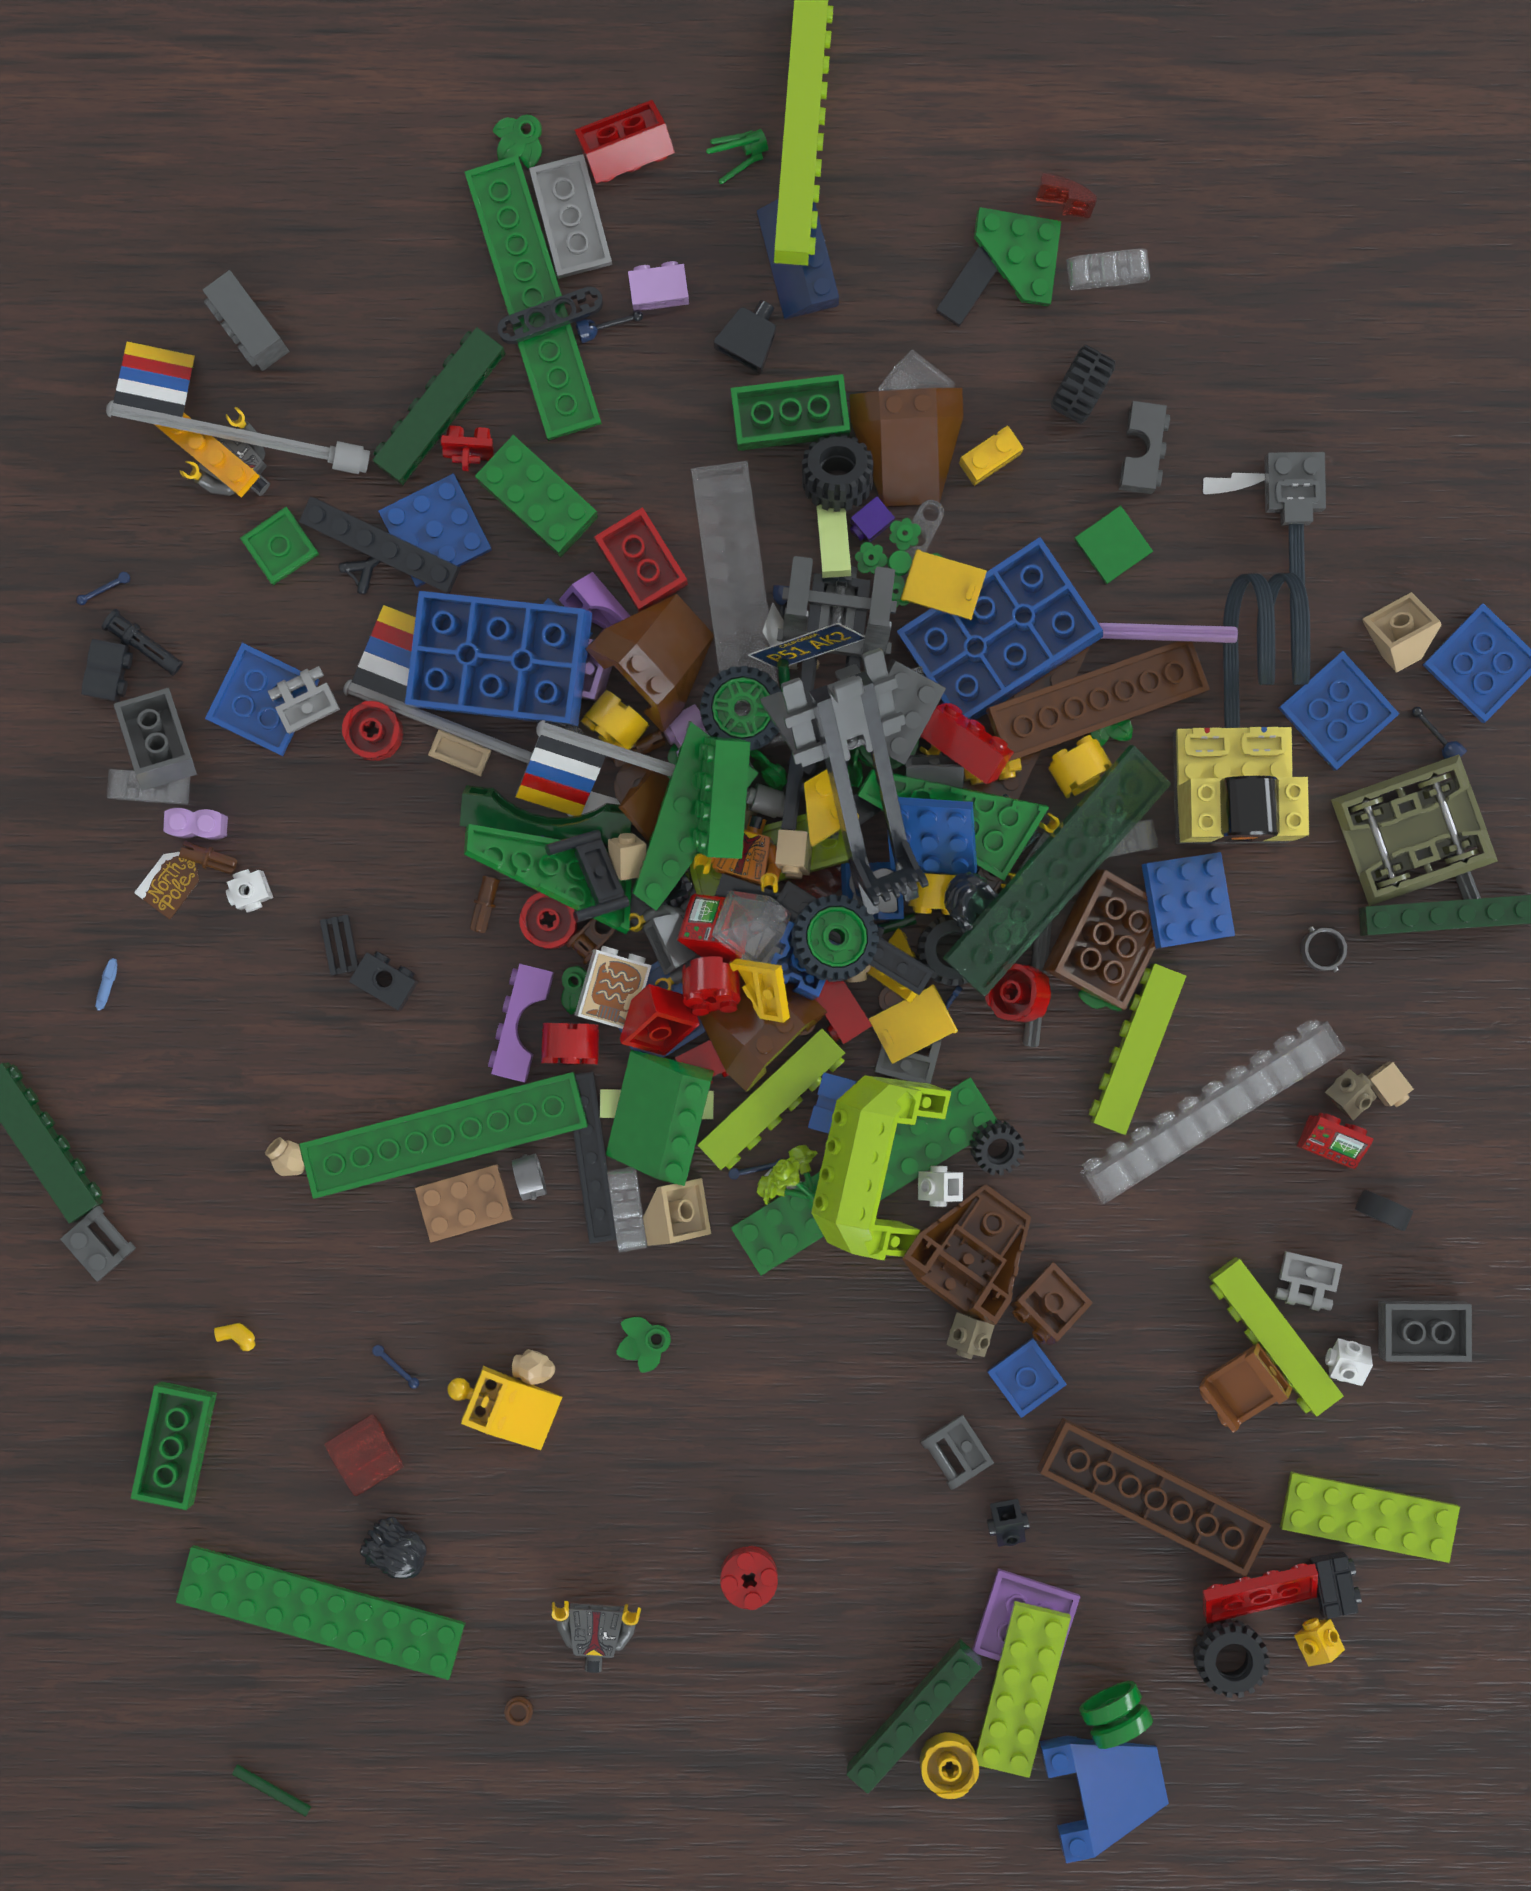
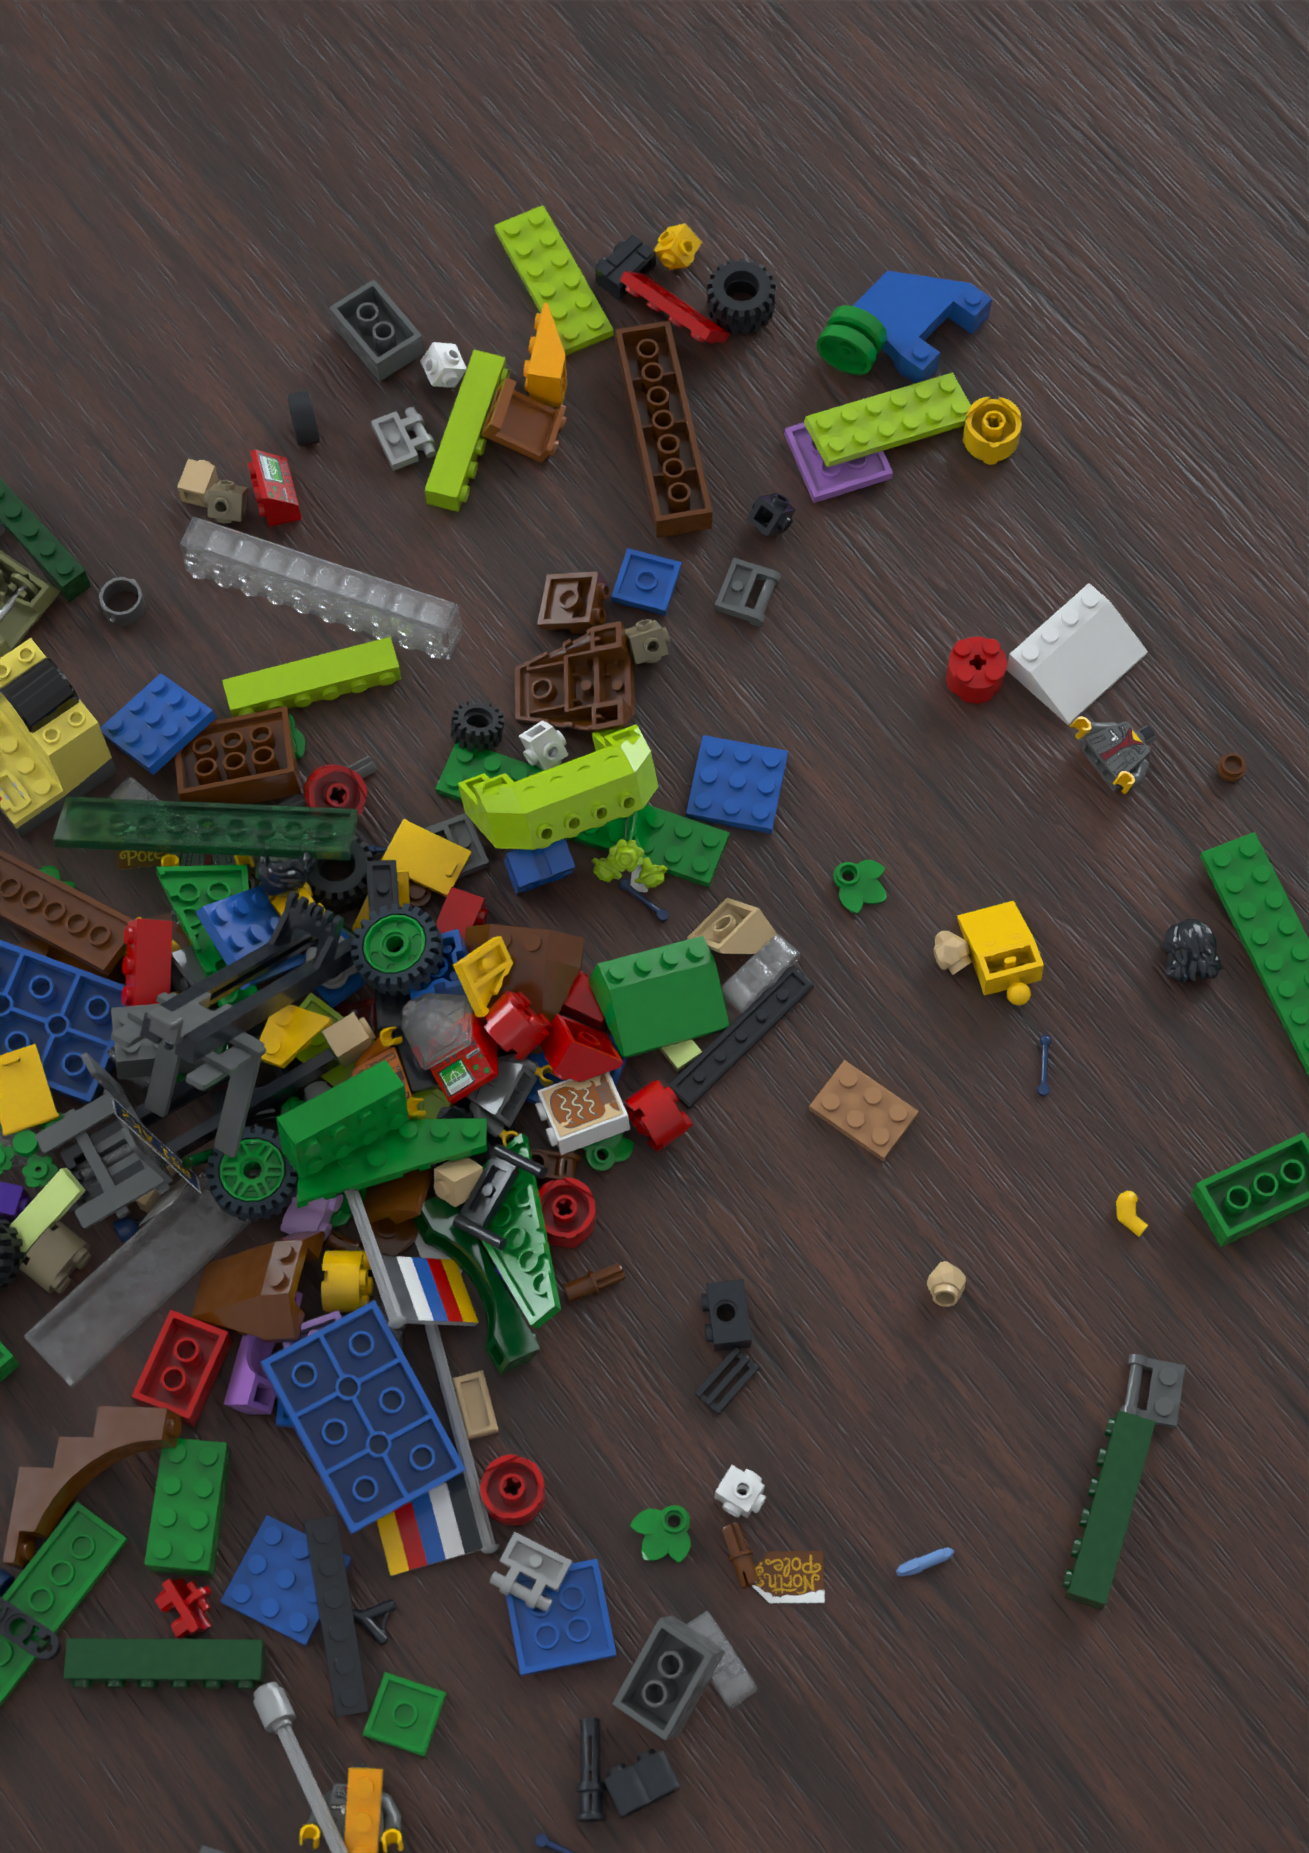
camera: 125 degrees left, 20 degrees down
(190, 824) = (724, 1594): lavender brick -> none
(266, 812) = (661, 1537): none -> green plate
(364, 1455) = (1137, 1034): clear red slope -> none
(443, 1135) = (821, 1166): green plate -> none
(512, 1058) = (637, 1188): medium lavender arch -> none
(529, 1177) = (797, 1068): flat silver piece -> none
(623, 404) = (47, 1492): none -> reddish brown arch
(702, 1669) = (1076, 654): none -> white slope
(770, 1099) = (604, 930): lime brick -> none
(795, 526) = (55, 1258): none -> dark tan brick
(798, 1314) = (737, 784): none -> blue plate
(914, 1716) = (977, 477): dark green brick -> none
(1079, 767) = (104, 878): yellow brick -> none
(1275, 1440) = (547, 367): none -> light orange slope

